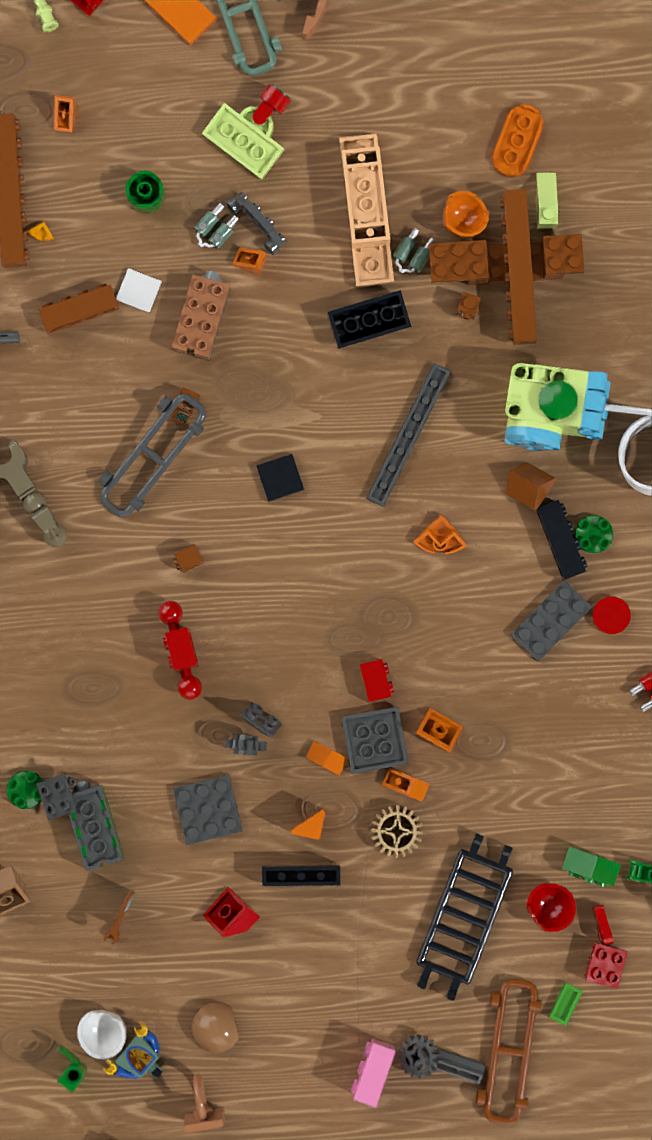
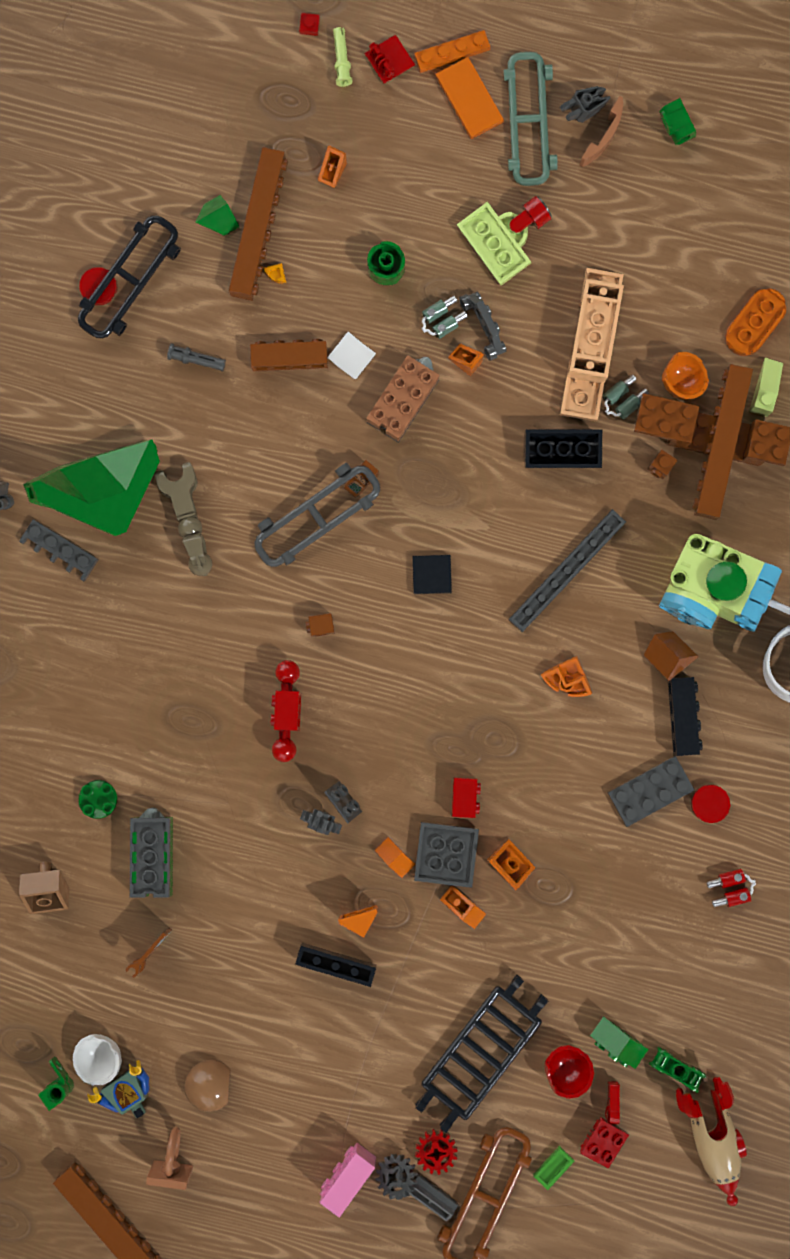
camera: 15 degrees right, 0 degrees up
(57, 796) = (124, 815): dark grey hinge -> none
(207, 810) = (265, 872): dark grey plate -> none
(230, 914) = (256, 981): red slope -> none
(413, 832) = (449, 952): tan gear -> none
(441, 1025) = (428, 1152): none -> red gear
(594, 534) = (717, 720): green dish -> none

